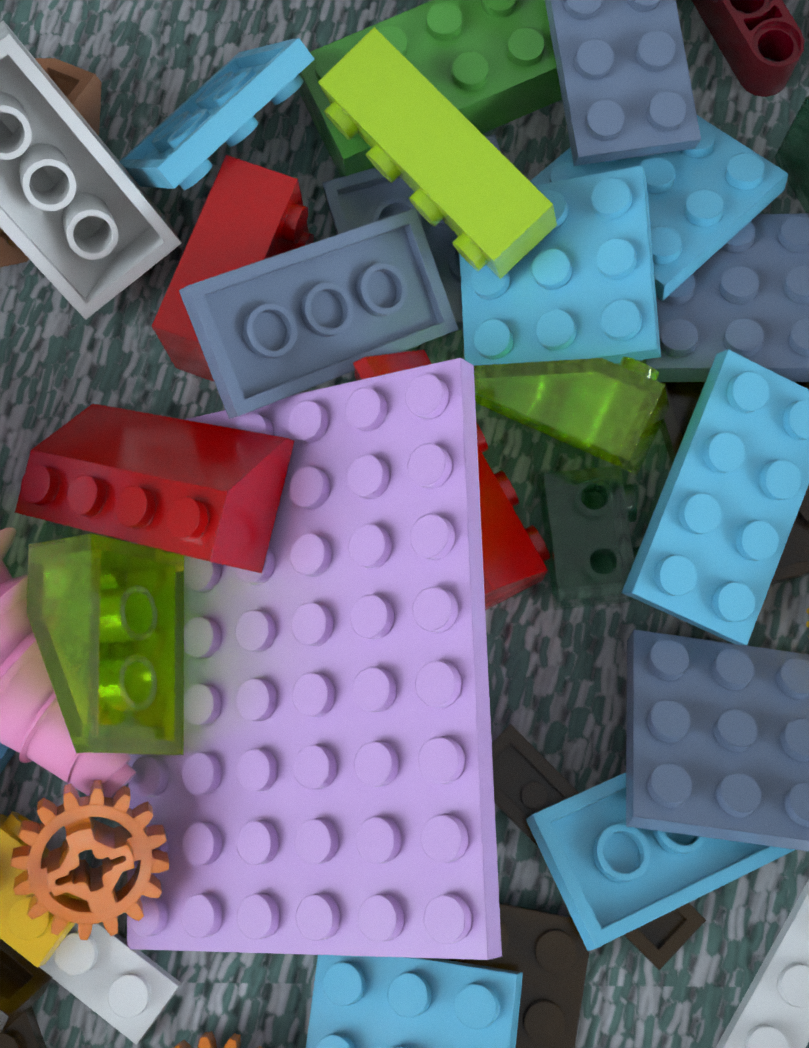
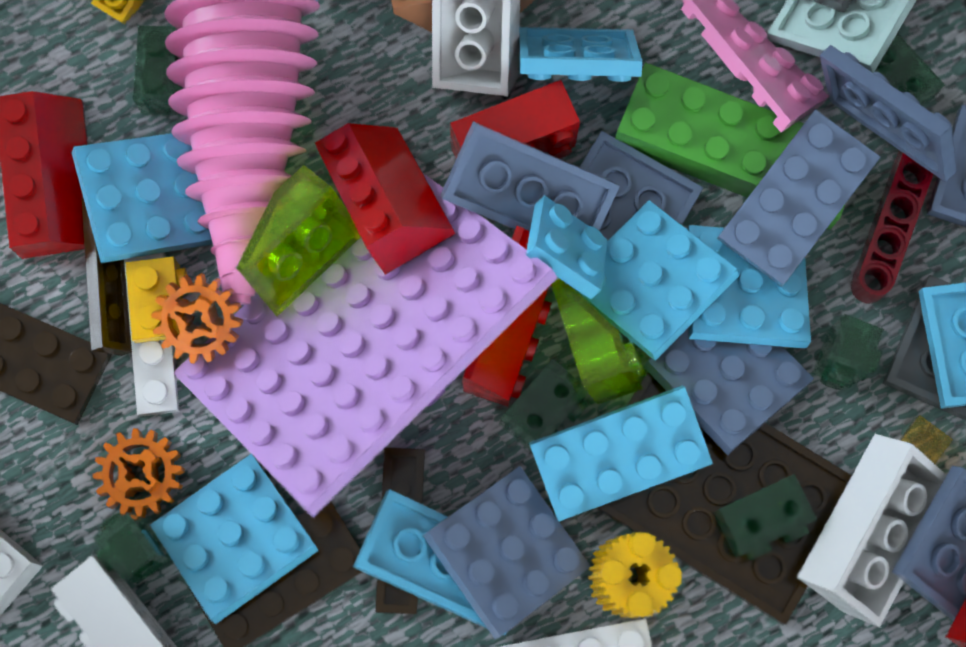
camera: 40 degrees right, 0 degrees up
(437, 154) = (650, 172): lime brick -> none
(437, 325) = (567, 246): none -> medium azure plate

